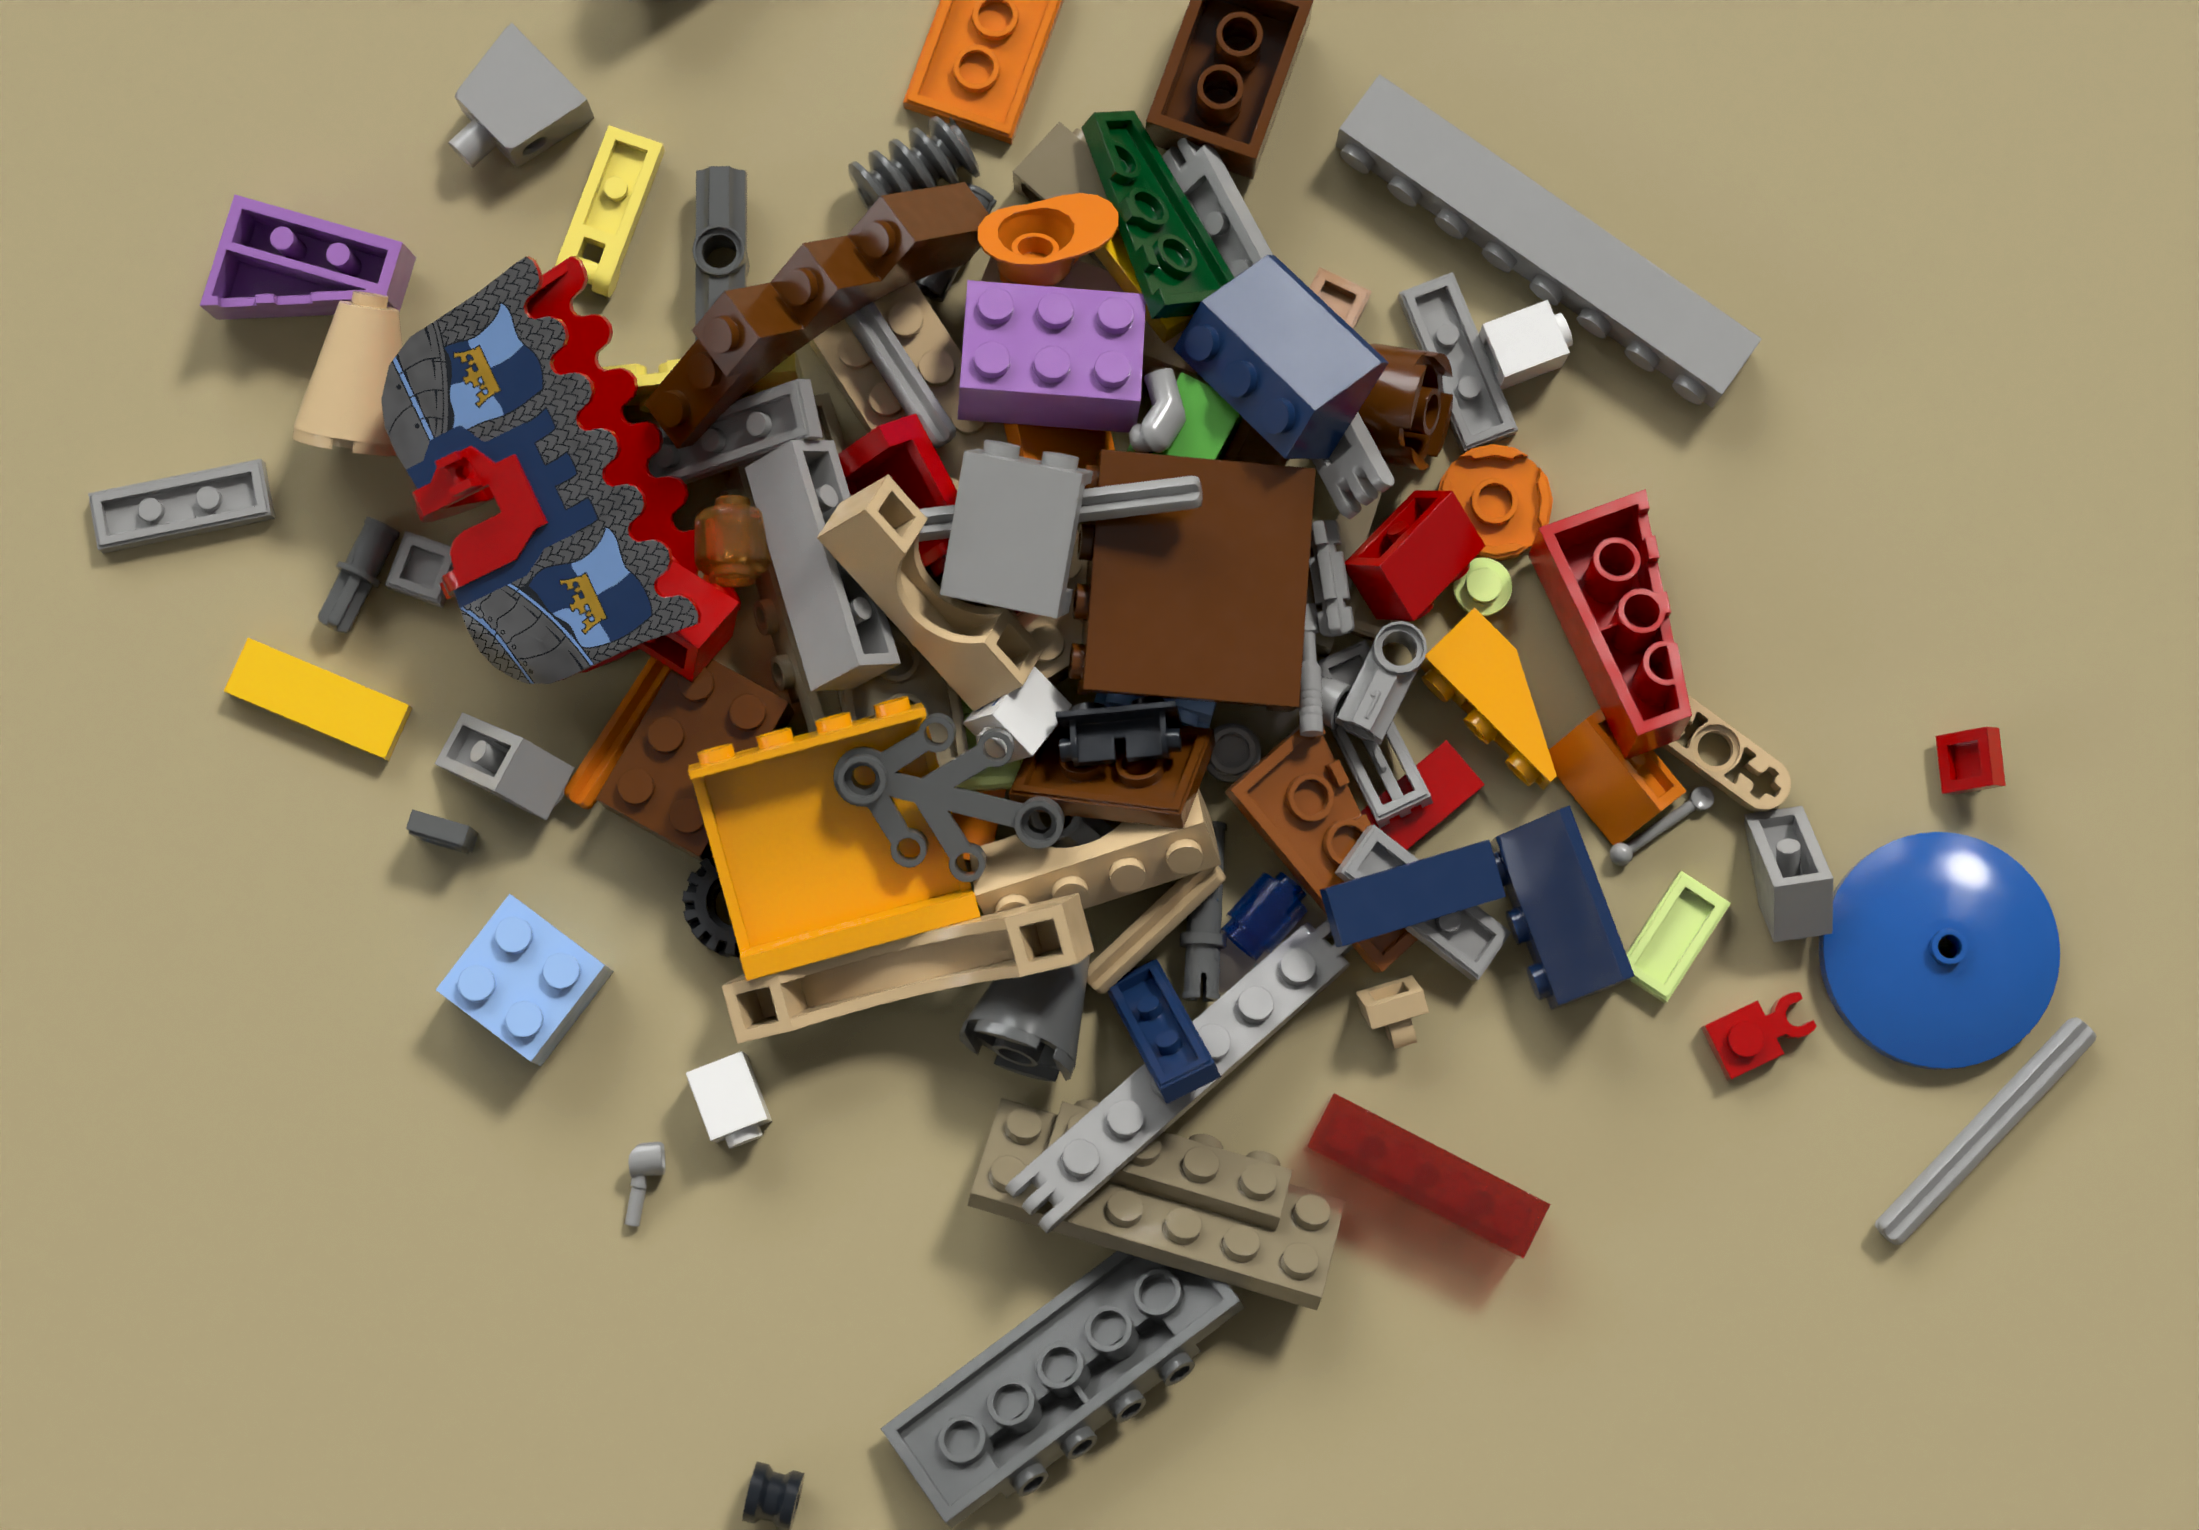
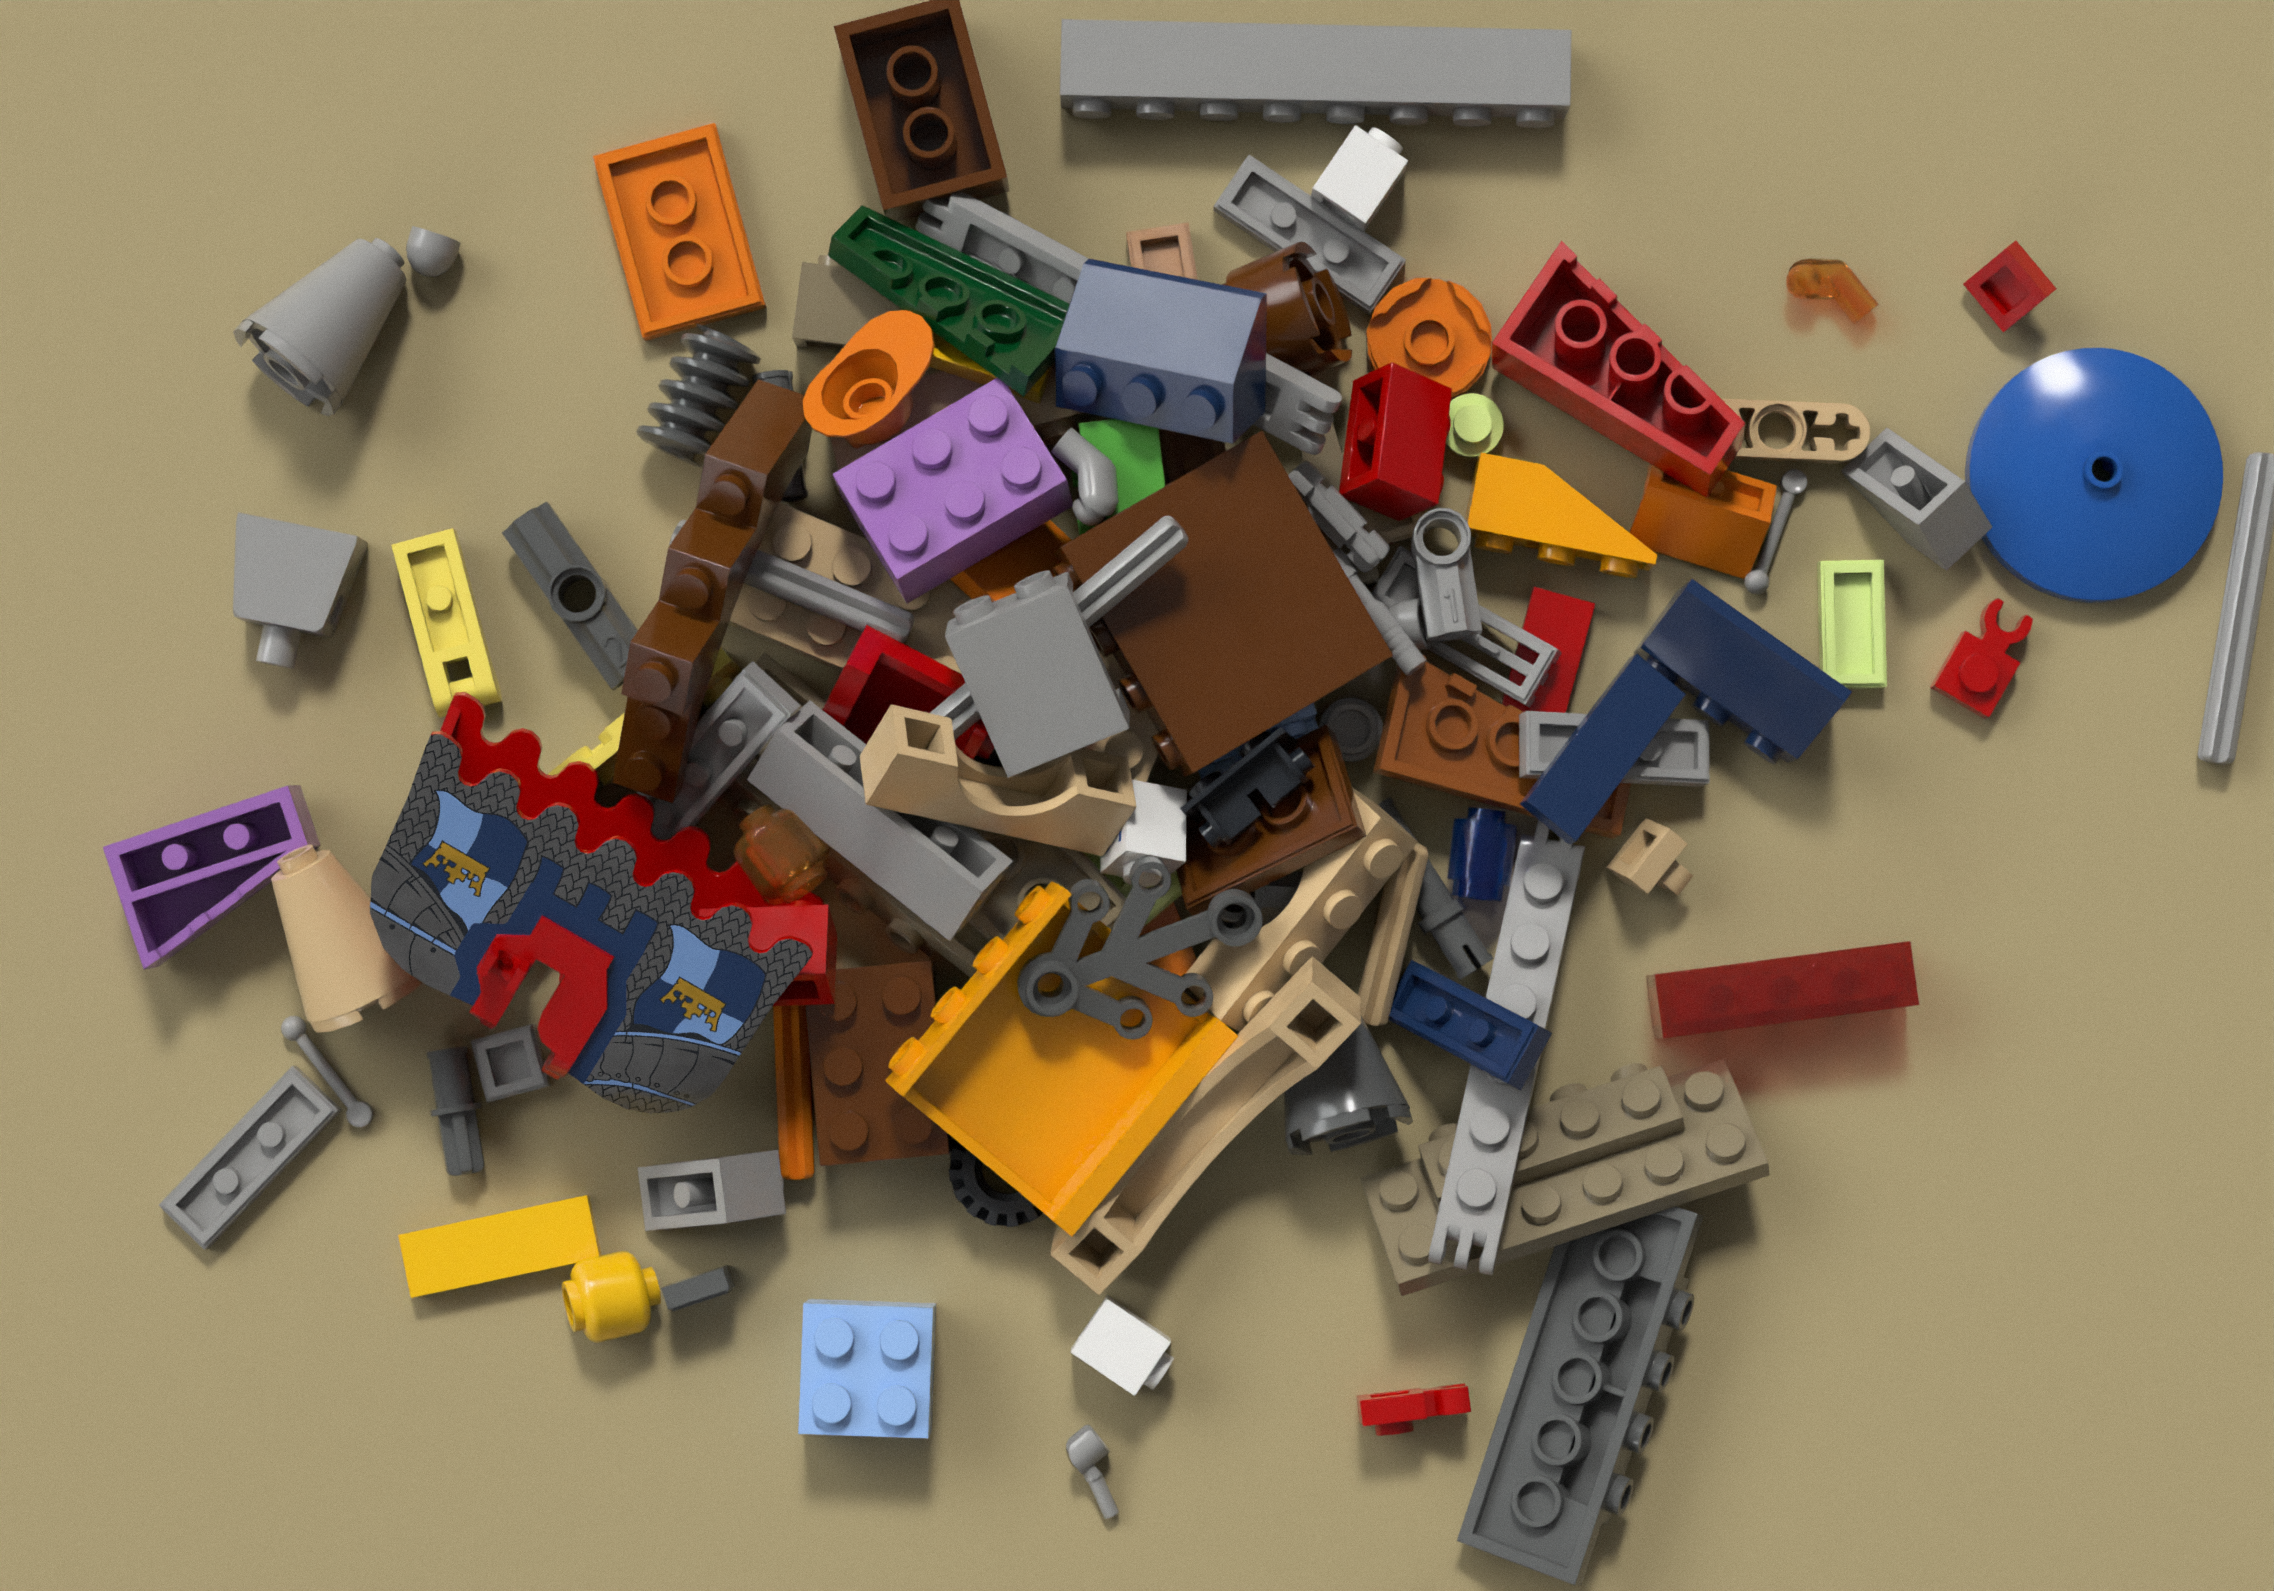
camera: 35 degrees left, 5 degrees up
(284, 528) = (358, 1112): none -> light grey hinge
(371, 792) = (610, 1296): none -> yellow head
(904, 1295) = (1395, 1410): none -> red plate
(1833, 664) = (1830, 281): none -> clear orange arm

